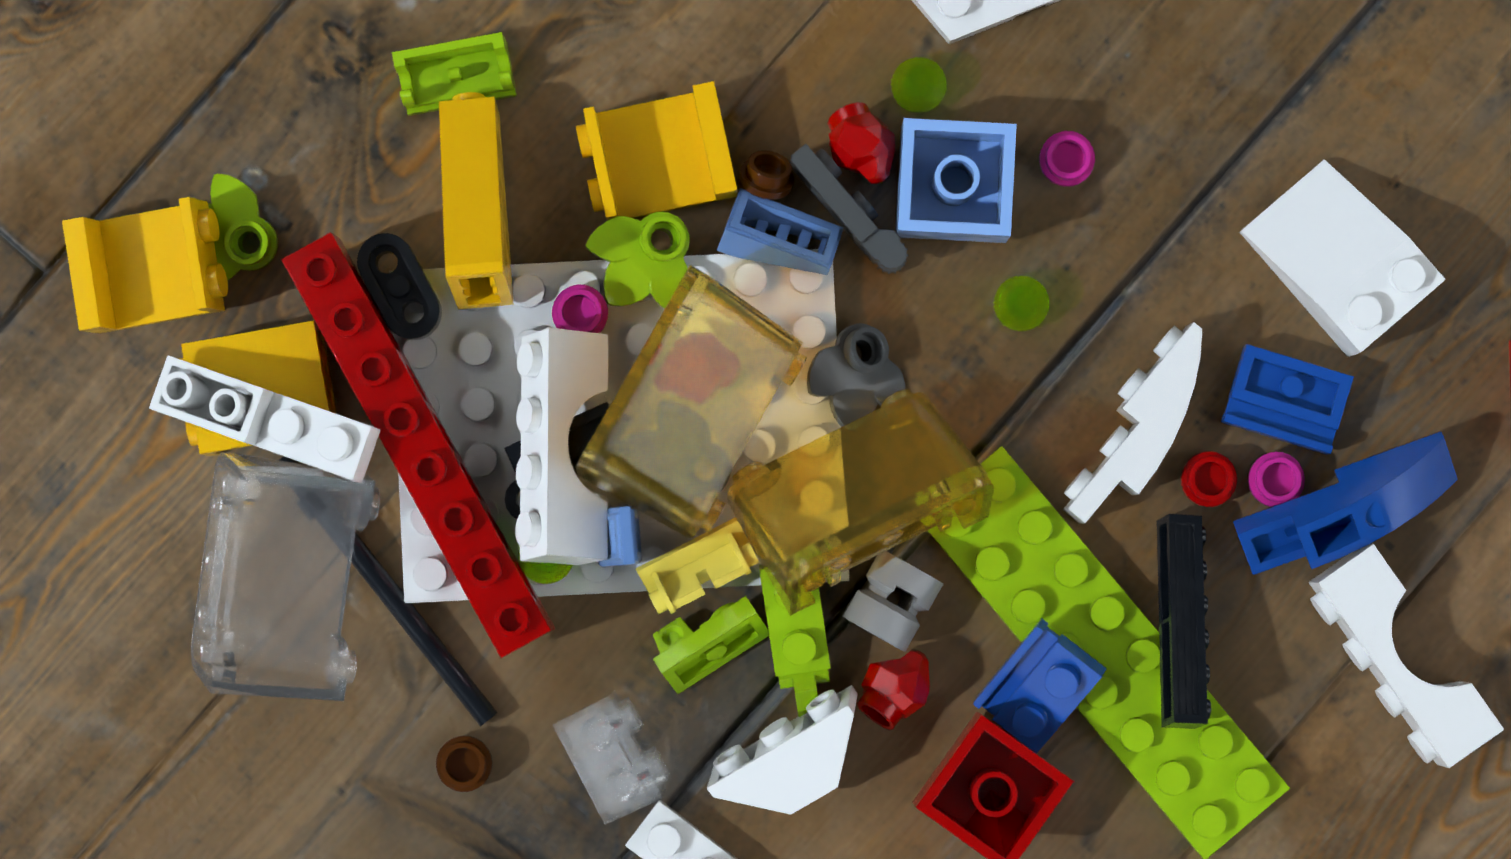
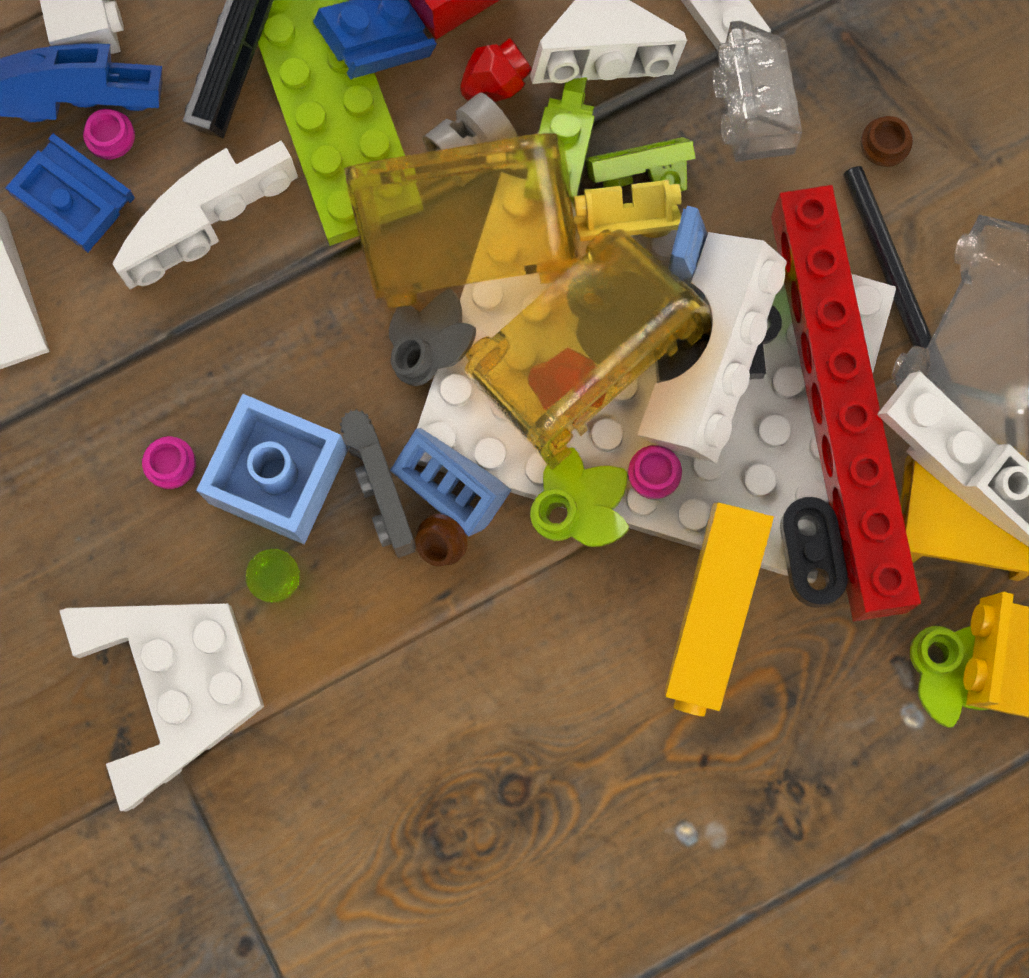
camera: 160 degrees left, 10 degrees down
(453, 68) = (694, 740): lime hinge -> none
(658, 155) = (531, 598): yellow panel -> none
(861, 142) = (343, 536): red rock -> none
(1021, 303) = (261, 353): clear neon green plate -> none
(1208, 479) = (164, 153): red plate -> none

